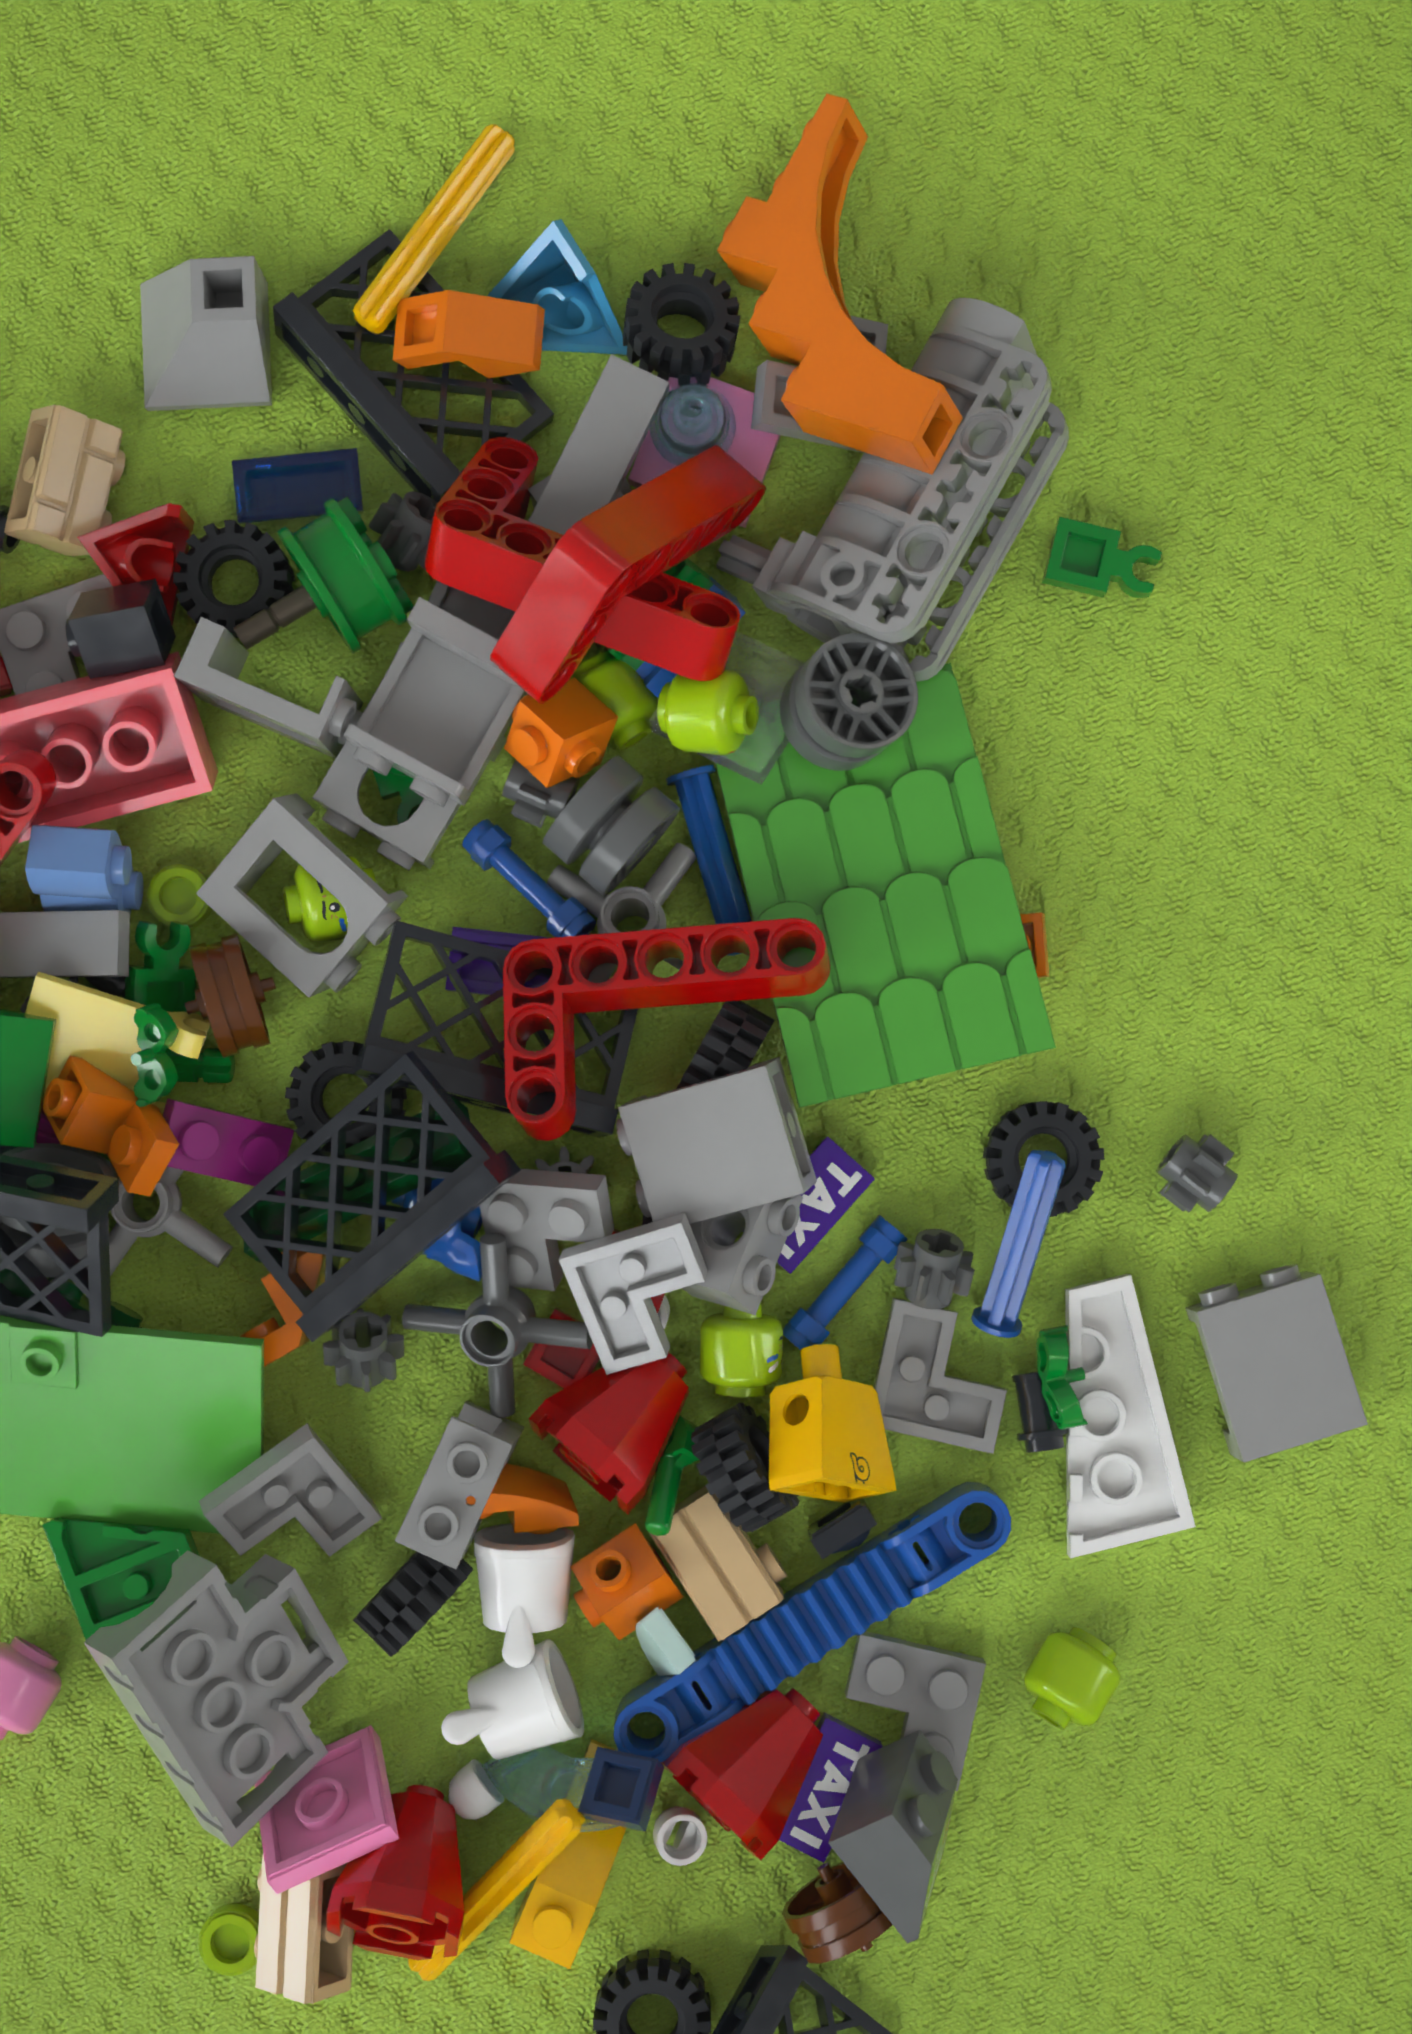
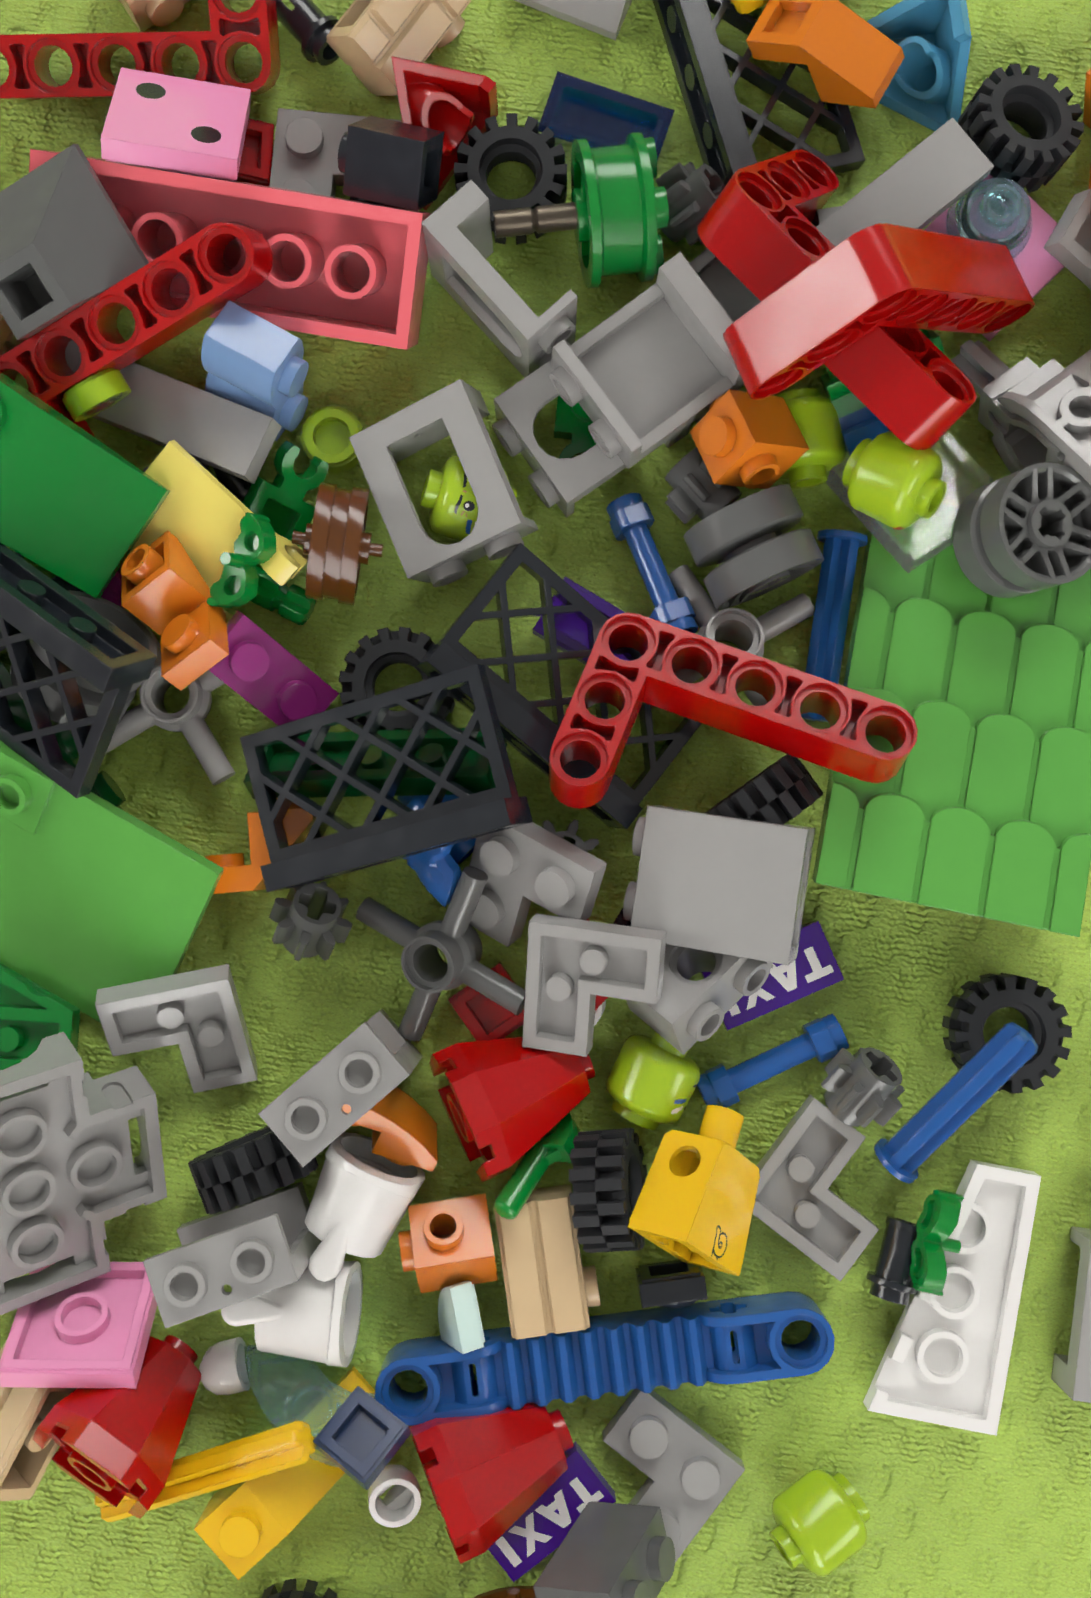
camera: 25 degrees right, 0 degrees up
(432, 1675) = (245, 1247): none -> light grey panel

